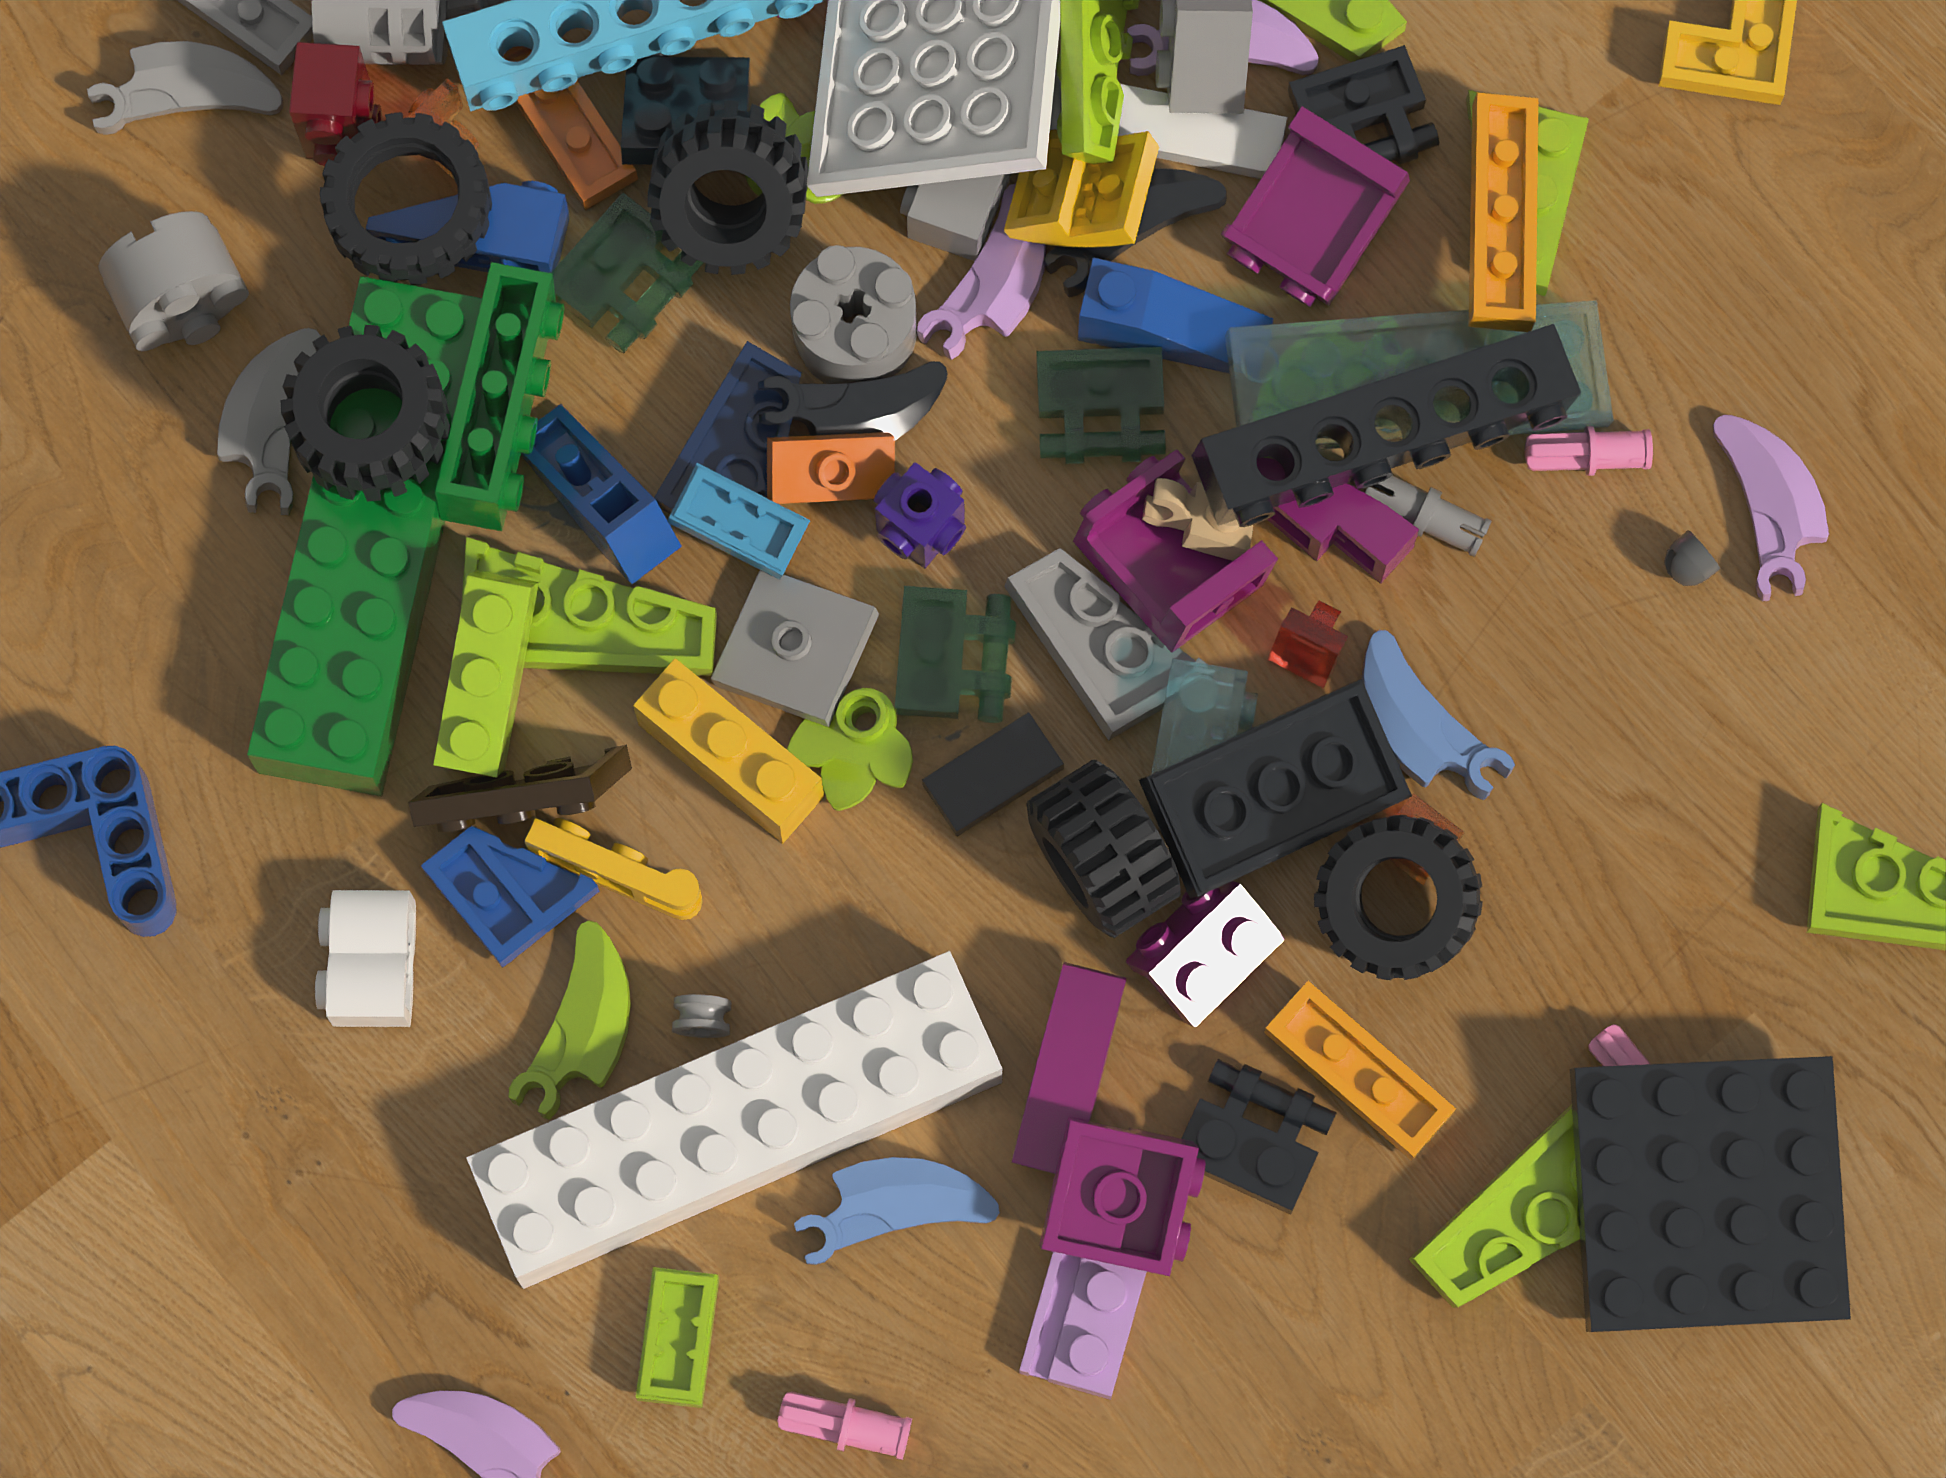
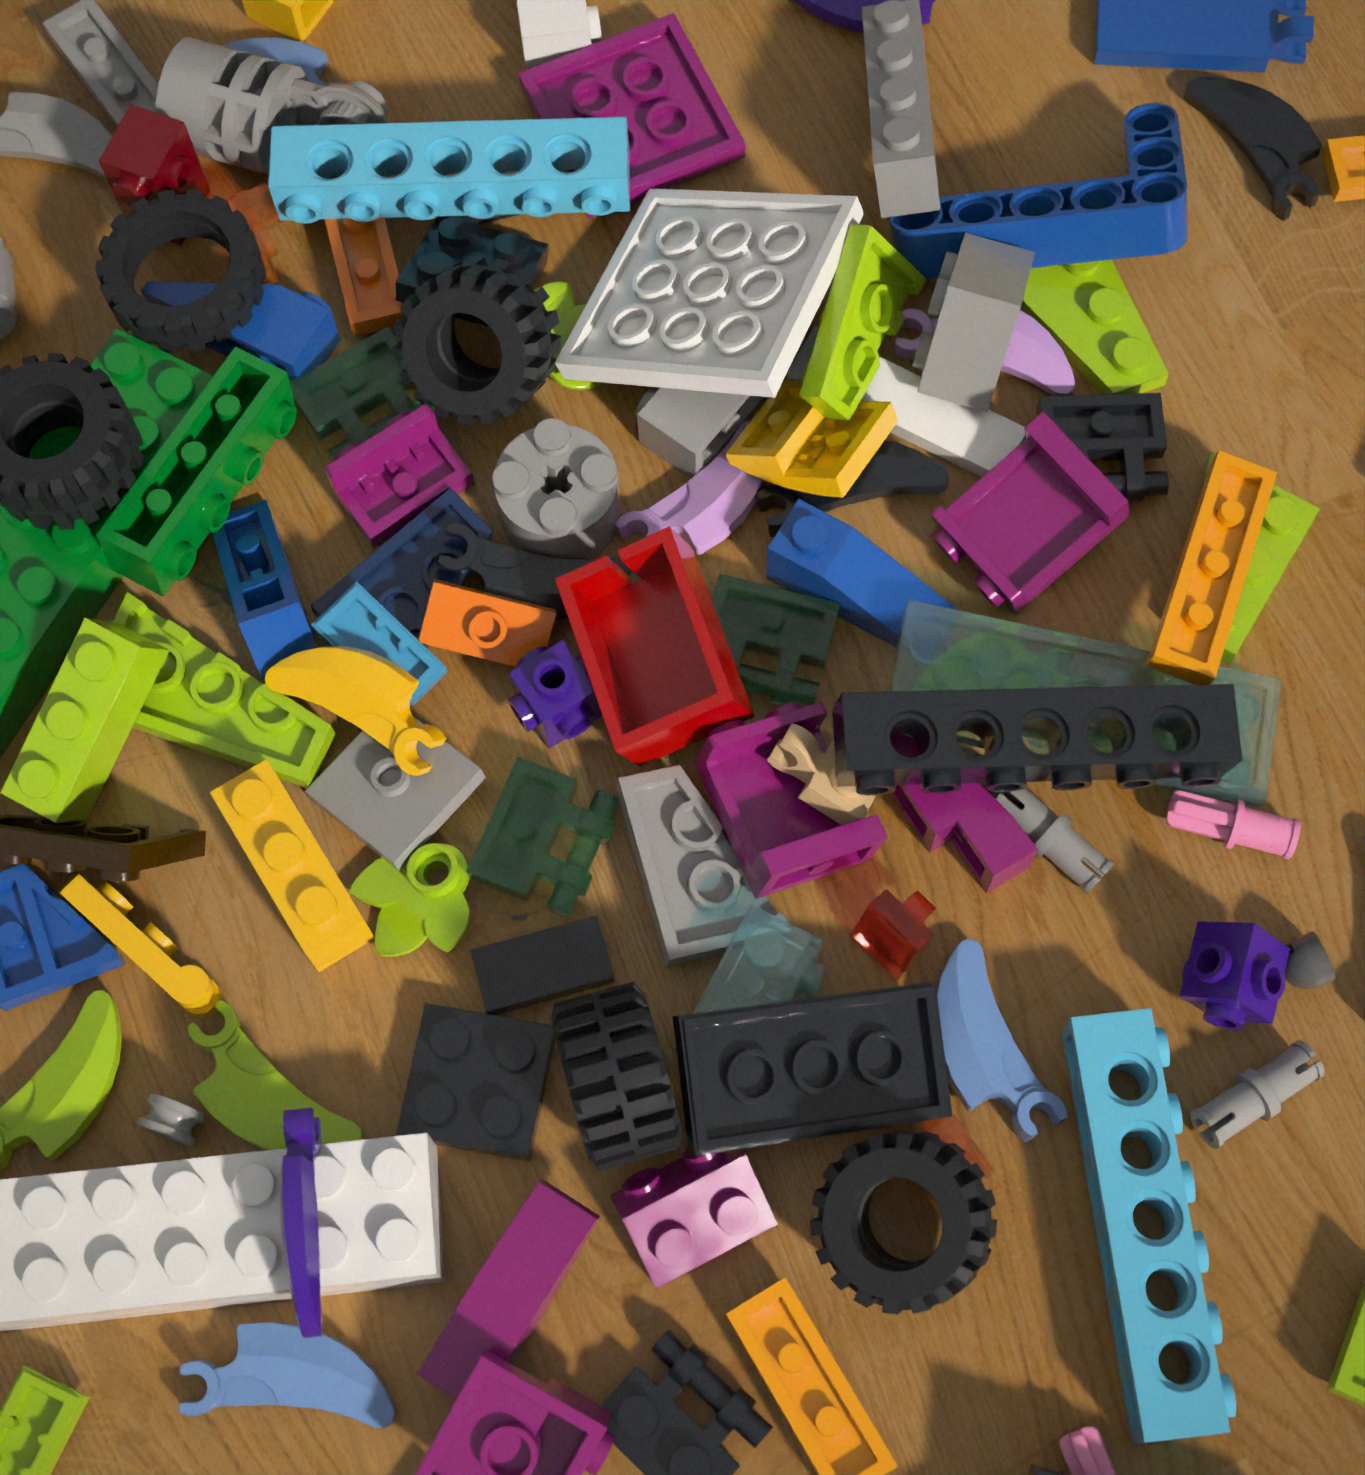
camera: 20 degrees right, 5 degrees down
(688, 344) = (396, 474): none -> magenta bracket
(738, 566) = (362, 691): none -> yellow piece
(769, 974) = (251, 1095): none -> lime piece
(874, 1053) = (300, 1217): none -> dark purple piece
(970, 895) = (477, 1081): none -> black plate
(1004, 444) = (653, 648): none -> red piece
(1628, 590) = (1234, 973): none -> dark purple brick
(1661, 988) = (1153, 1404): none -> medium azure brick
(1678, 693) = (1257, 1094): none -> light grey pin

